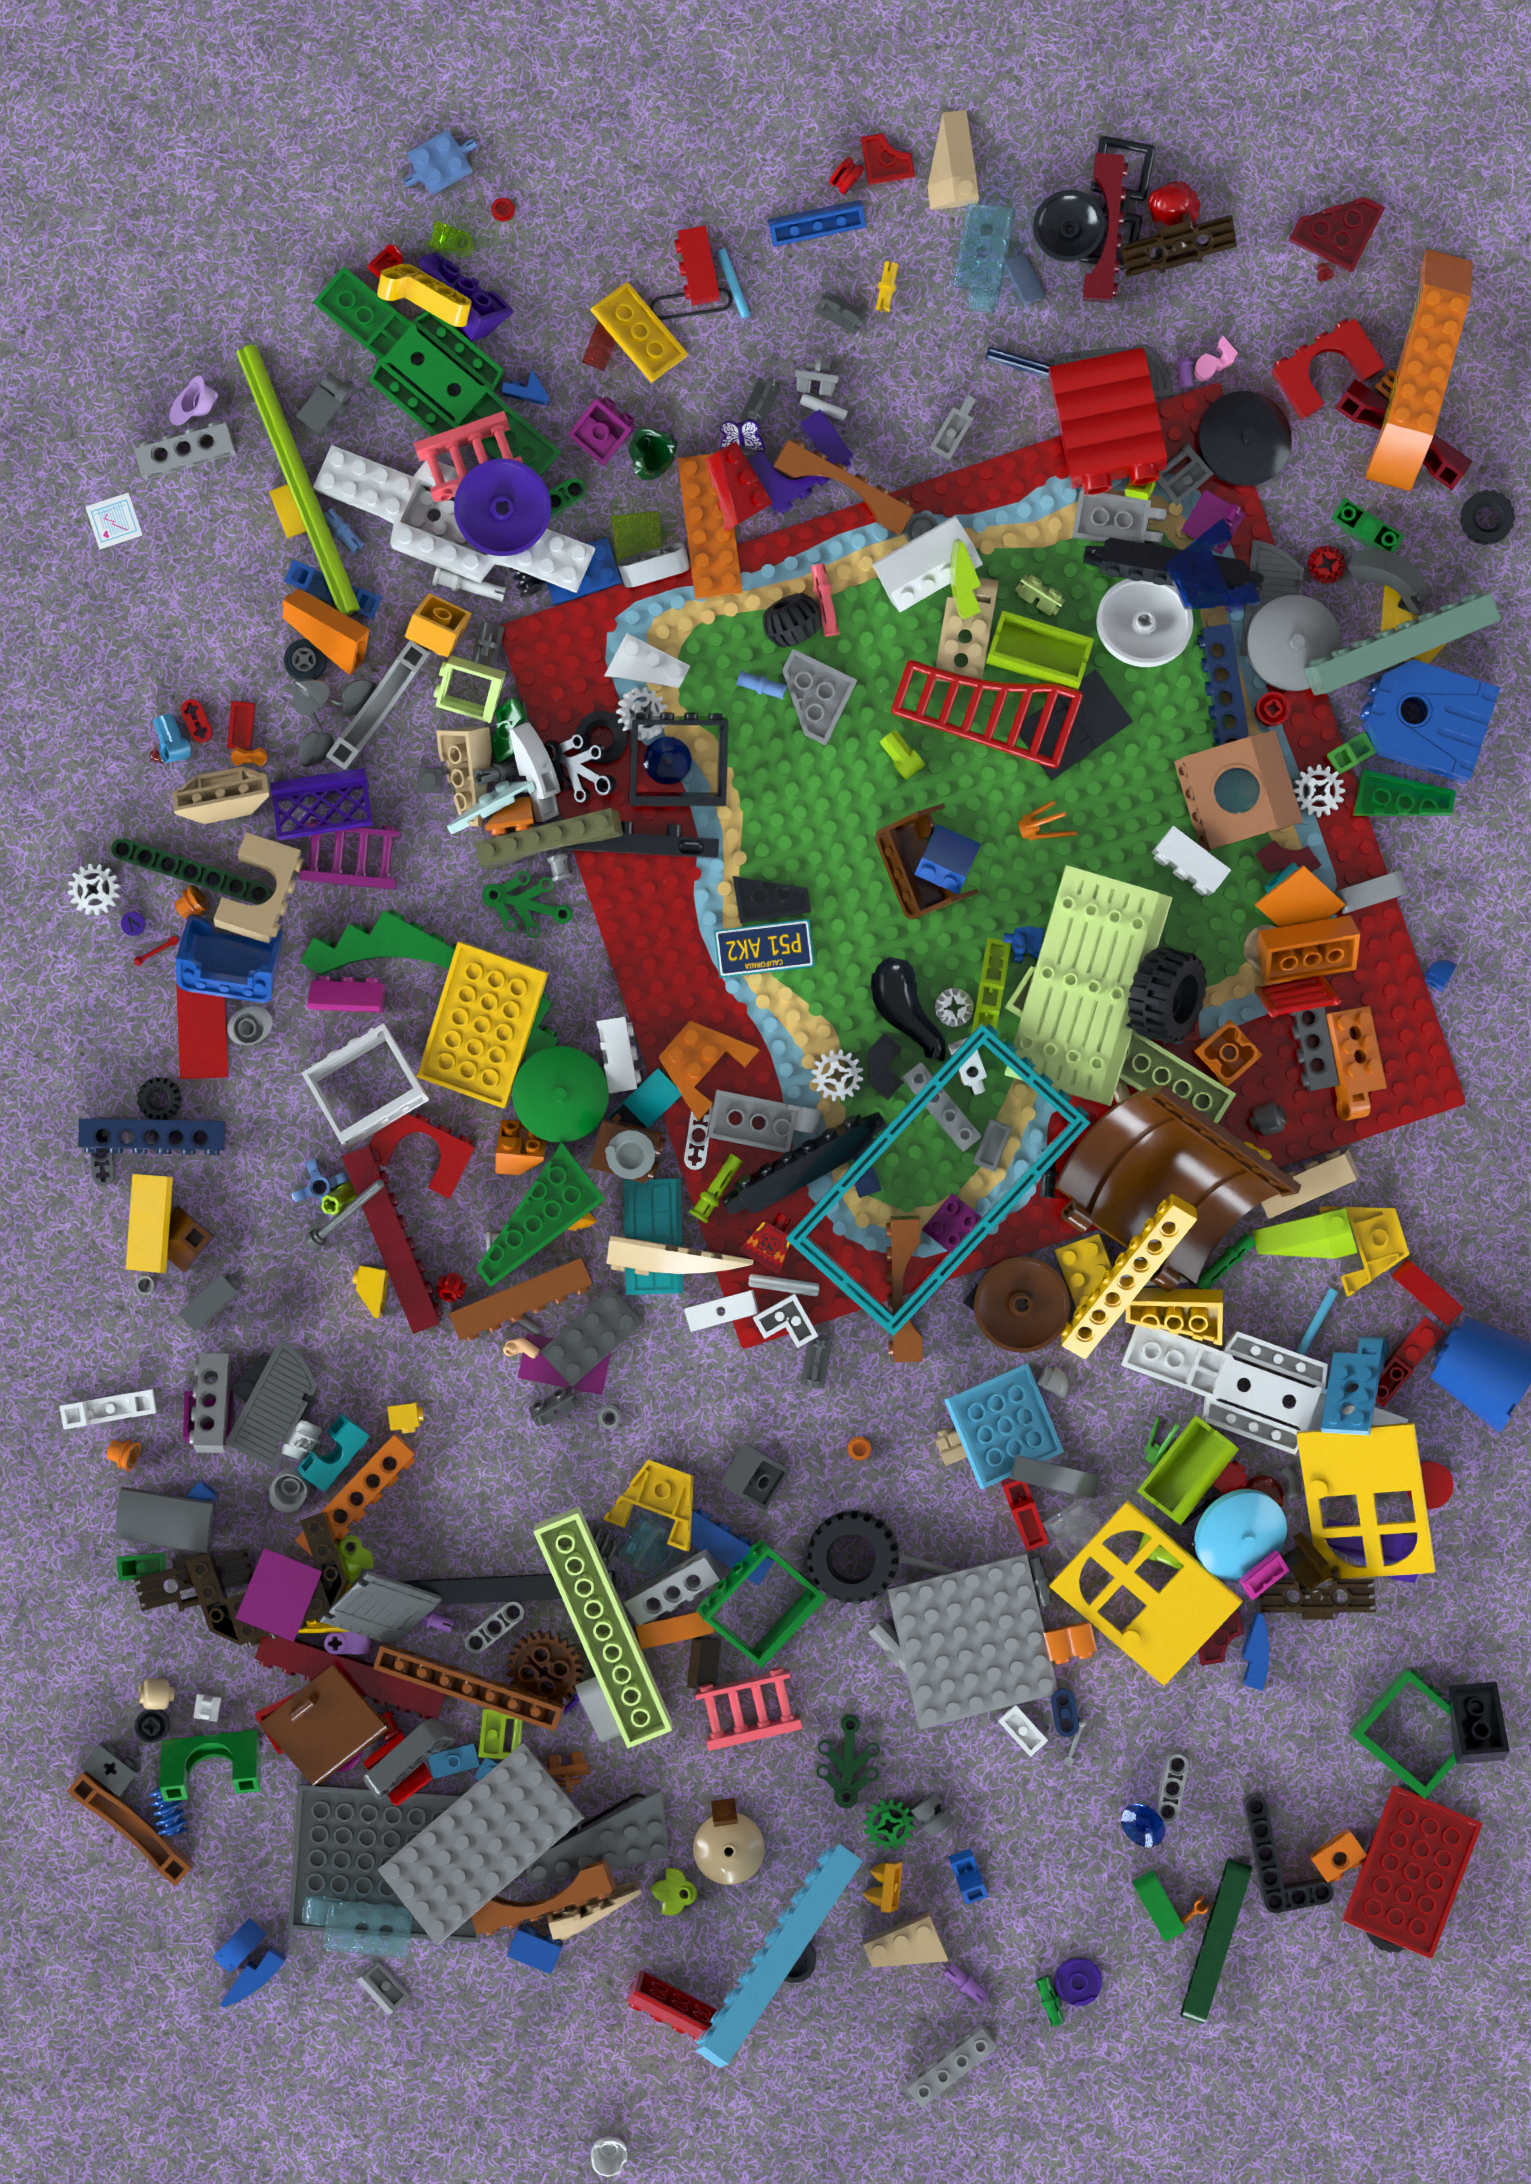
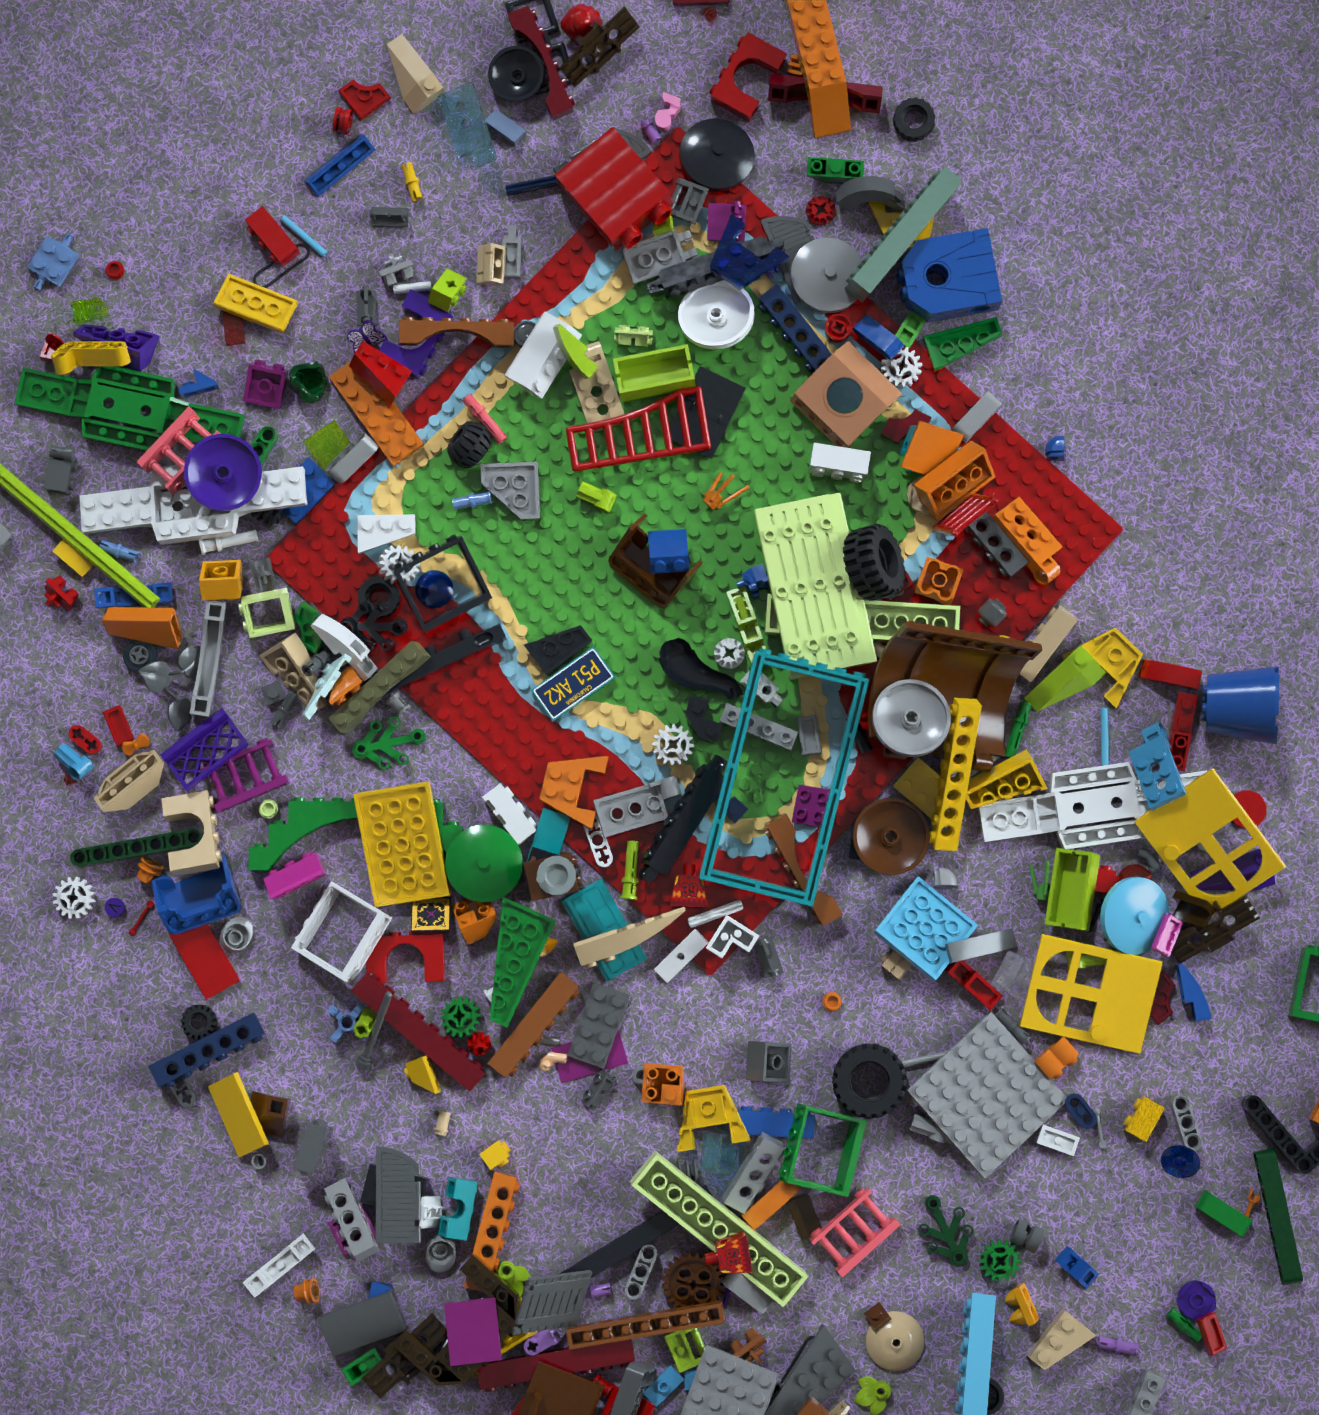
camera: 30 degrees left, 5 degrees down
(250, 533) = (57, 596): none -> red hips
(357, 906) = (268, 809): none -> yellowish green plate
(365, 1351) = (442, 1123): none -> tan pin
(432, 805) = (284, 709): none -> dark grey axle
(442, 1256) = (459, 1006): none -> green gear
(472, 1120) = (431, 916): none -> tile
(601, 1663) = (731, 1254): none -> torso
(627, 1439) = (663, 1084): none -> orange slope
(860, 433) = (448, 290): none -> lime brick
(924, 429) = (490, 264): none -> tan brick
(1074, 2026) = (1211, 1333): none -> red tile
(1112, 1191) = (911, 718): none -> light grey dish
(1128, 1757) = (1143, 1118): none -> yellow brick
(1311, 744) = (878, 337): none -> blue beam

